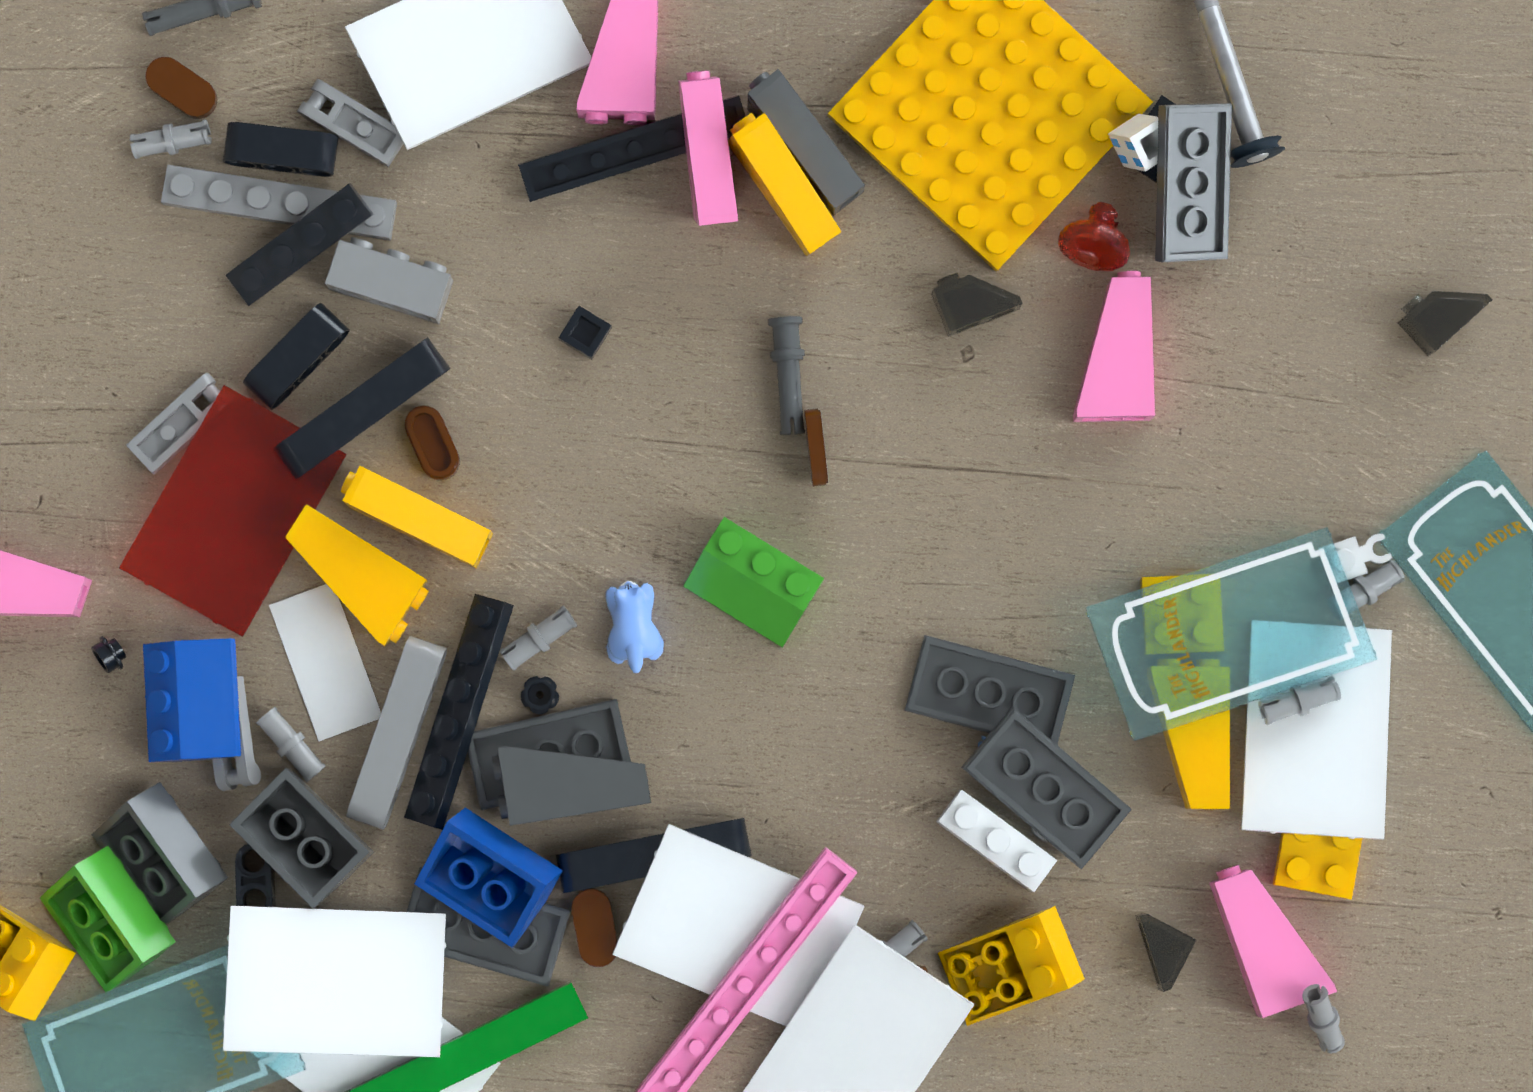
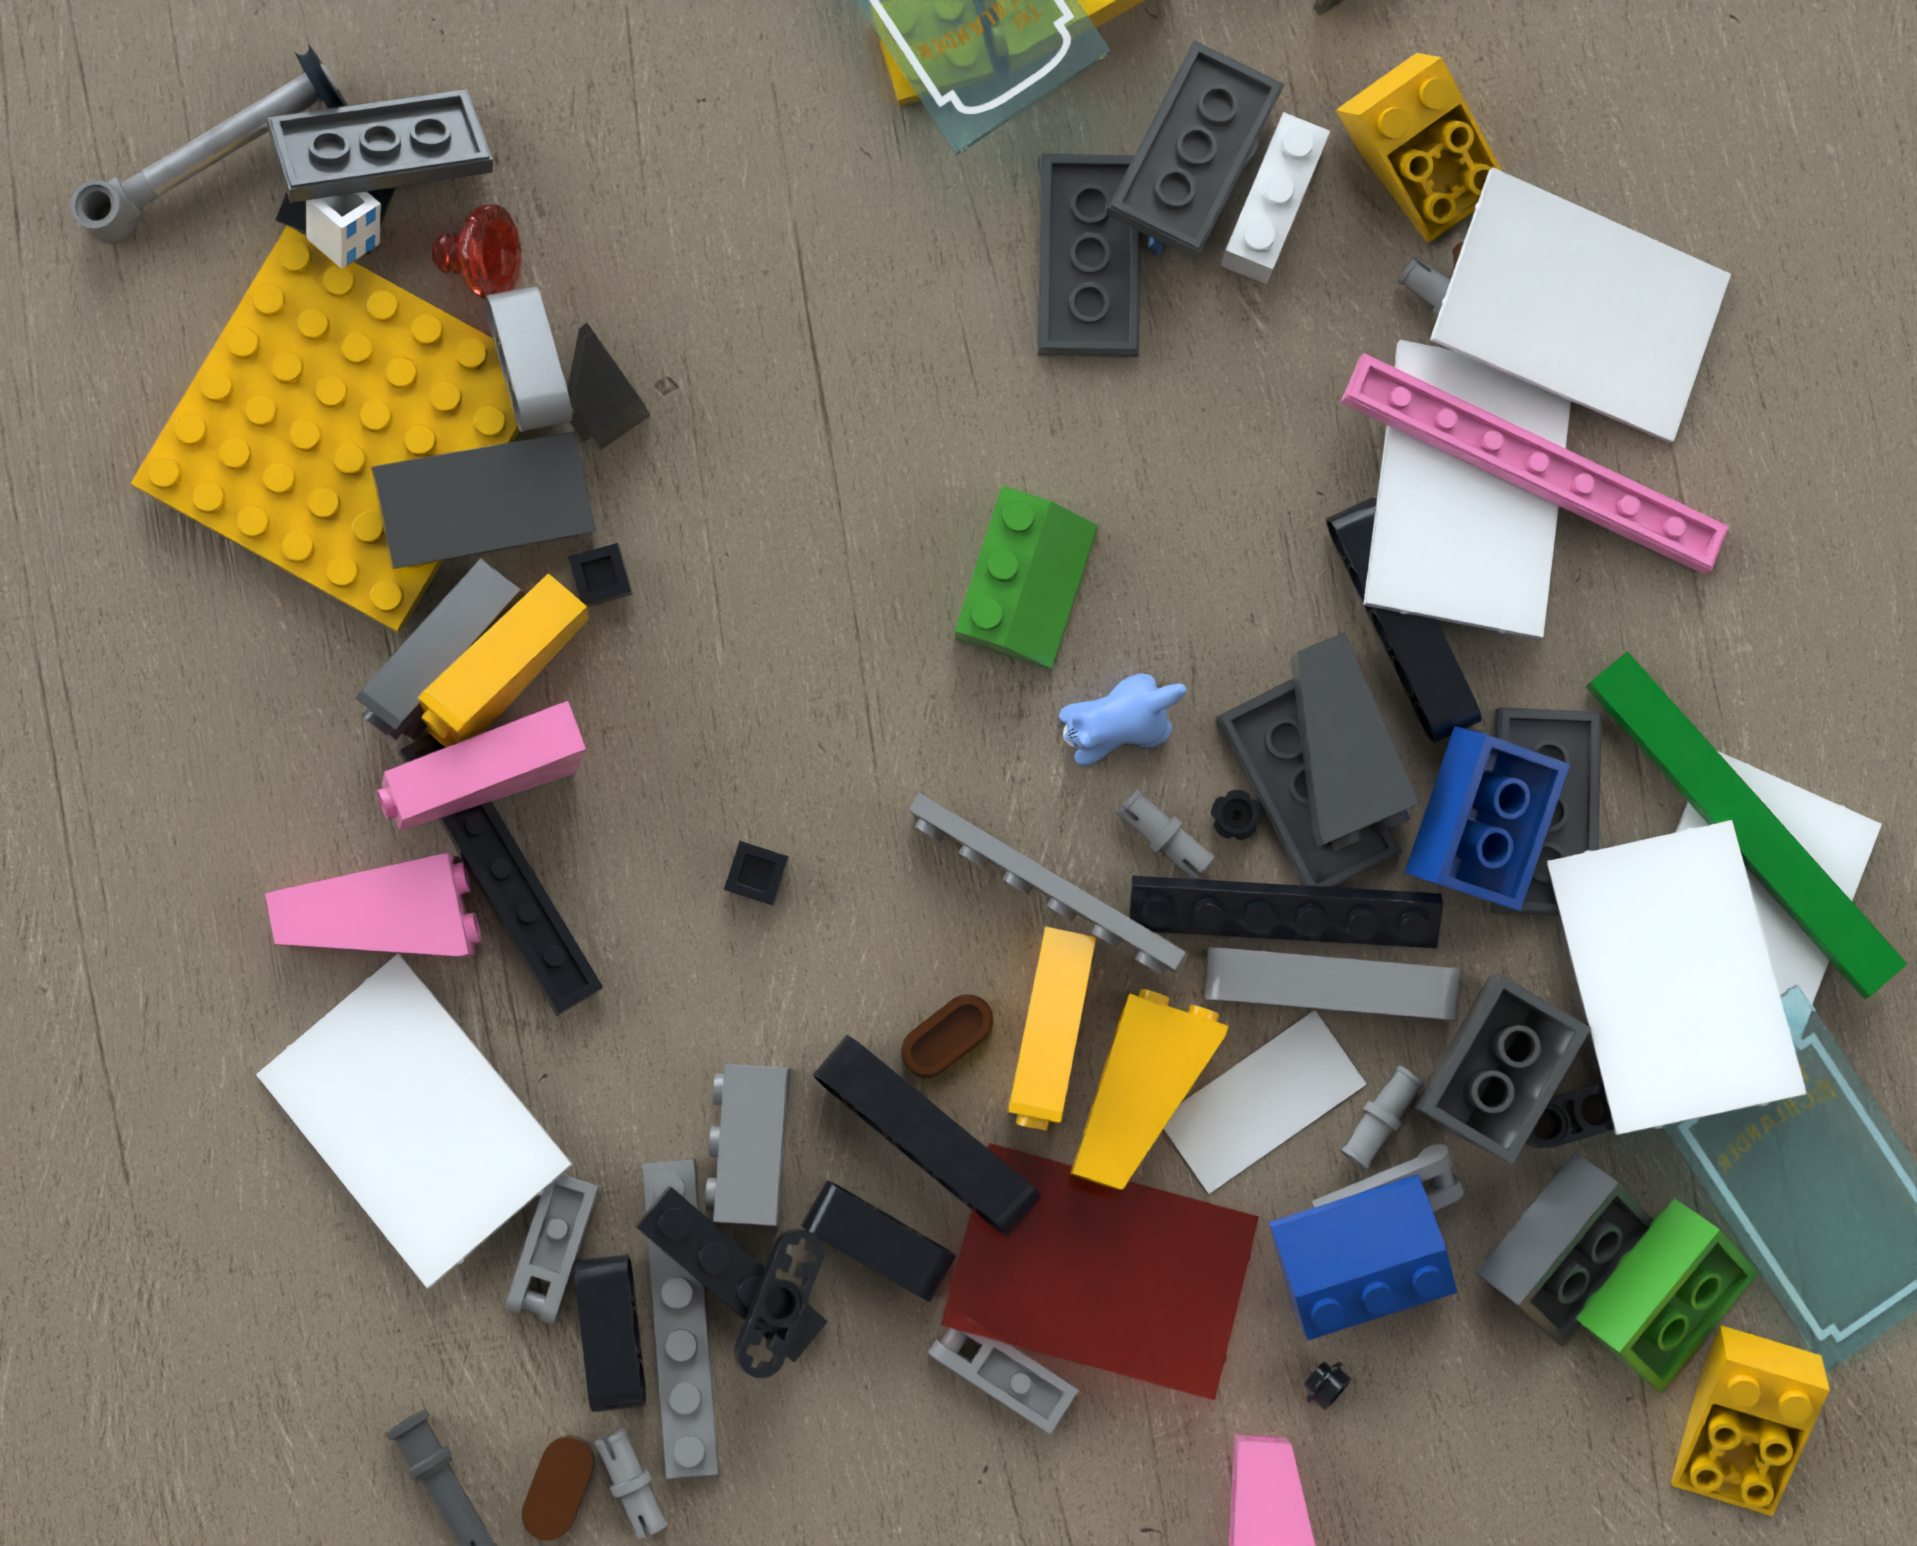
camera: 95 degrees left, 0 degrees up
(239, 263) = (776, 1344): none -> black beam
(508, 550) = (1064, 897): none -> light grey plate
(594, 927) = (1513, 671): reddish brown tile -> none
(787, 354) = (724, 607): dark grey pin -> none
(816, 447) = (833, 542): reddish brown tile -> none
(834, 271) = (600, 575): none -> black plate
(908, 197) = (483, 499): none -> dark grey tile
(1006, 254) = (528, 358): none -> beam
(1120, 361) = (622, 189): bright pink slope -> none

